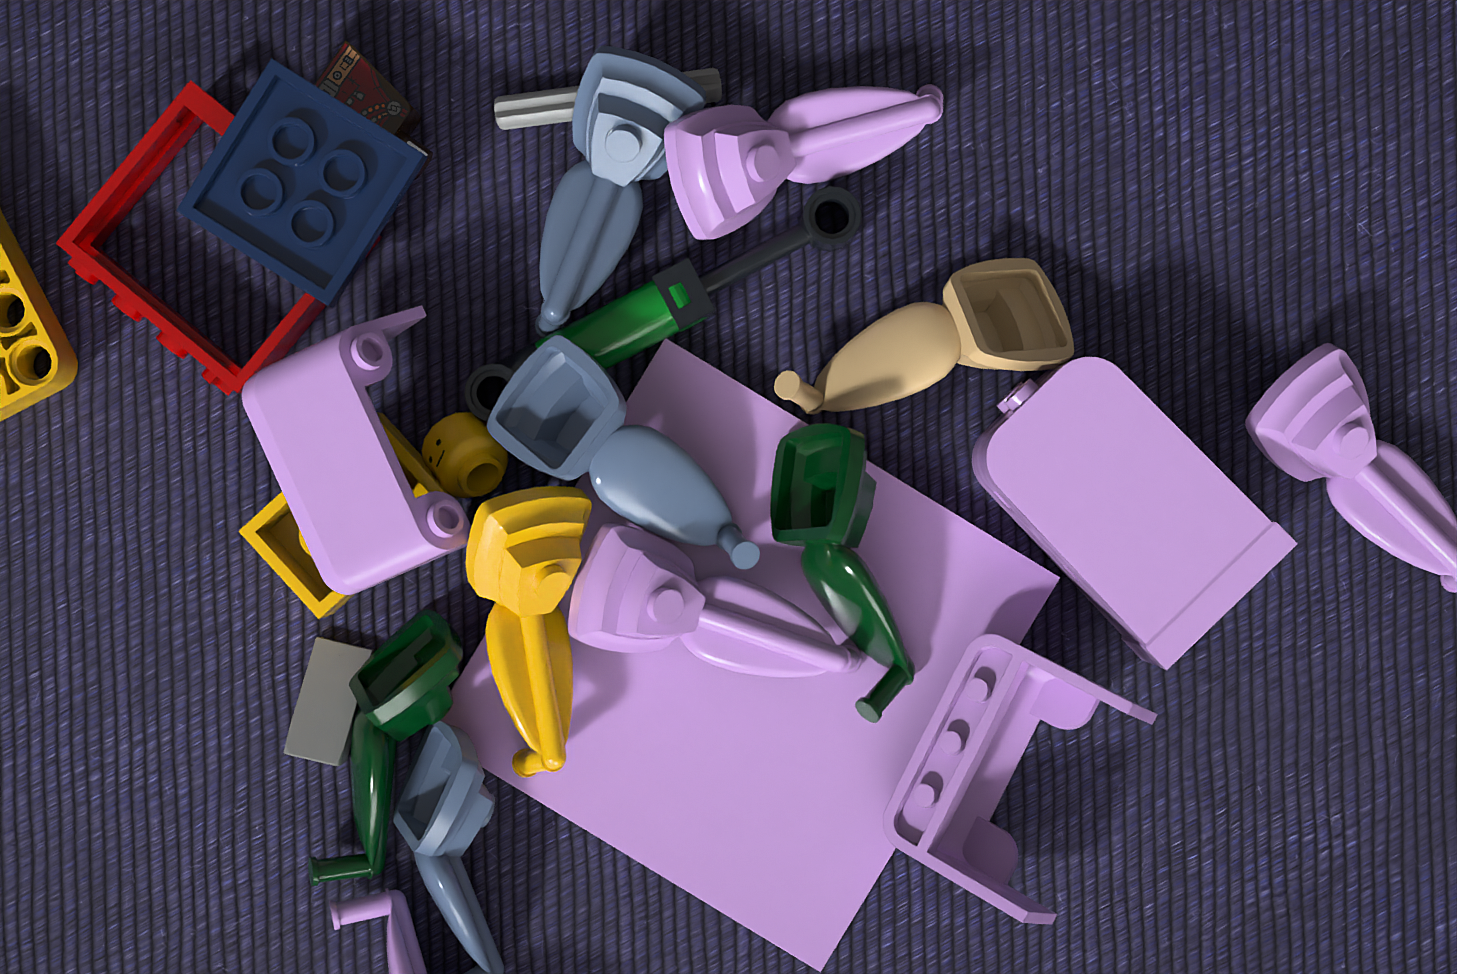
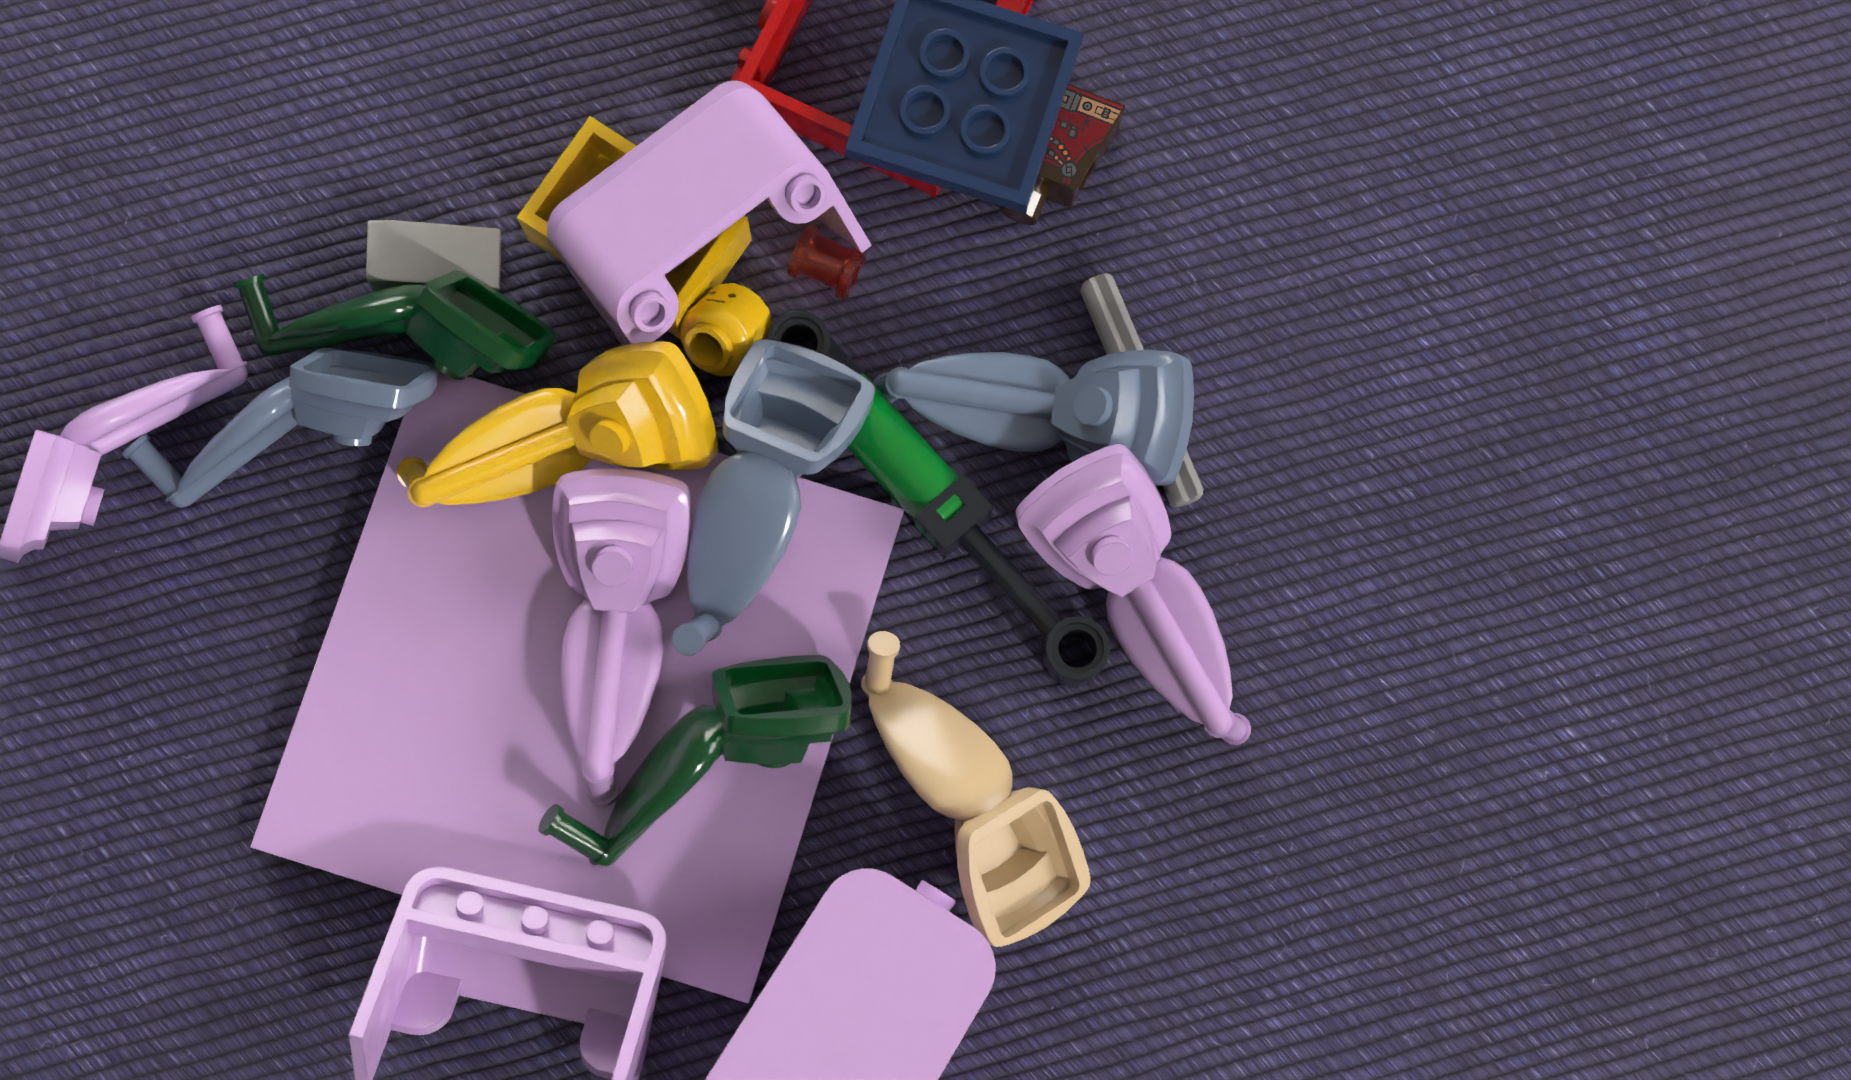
camera: 70 degrees right, 10 degrees down
(422, 350) = (826, 262): none -> clear red bush

